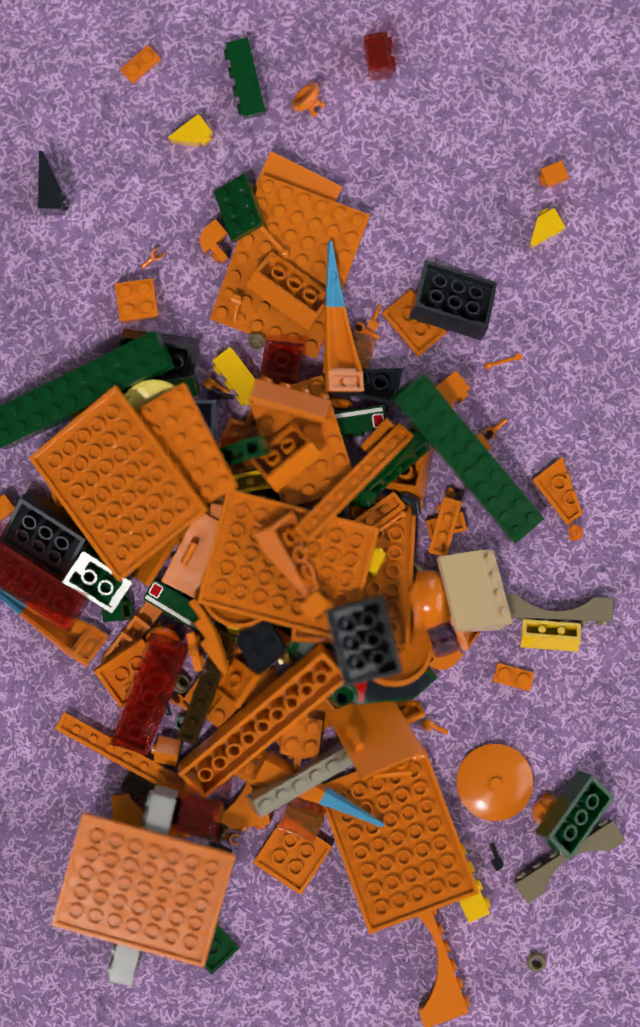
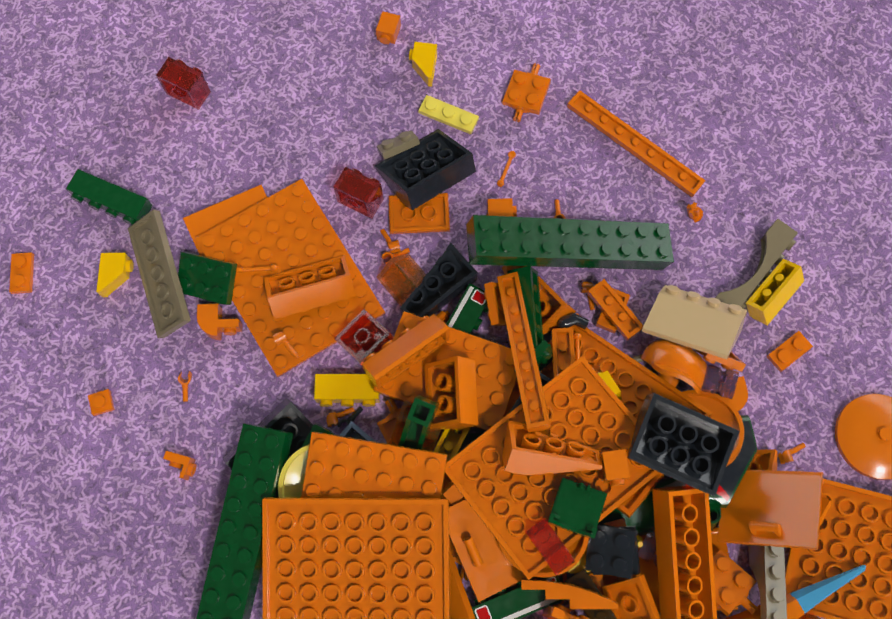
camera: 55 degrees left, 15 degrees down
(50, 193) = (53, 430): black slope -> none
(95, 208) = (101, 402): none -> orange plate
(97, 299) = (177, 460): none -> orange bracket
(137, 301) = (209, 426): orange brick -> none
(216, 169) = (159, 274): none -> dark tan plate
(228, 600) = (550, 546): none -> clear red slope
(256, 341) = (329, 350): dark tan plate -> none
(267, 600) = (577, 508): none -> dark green piece
(307, 99) = (169, 161): orange hair -> none
(340, 359) = (400, 283): orange plate -> none
(391, 266) = (358, 192): none -> clear red brick
(457, 263) = (398, 144): none -> dark tan plate
(515, 281) = (448, 114): none -> light yellow plate
(558, 491) = (650, 201): orange wing -> none
(581, 328) = (526, 92): none -> orange plate
(600, 445) = (636, 143): none -> orange plate

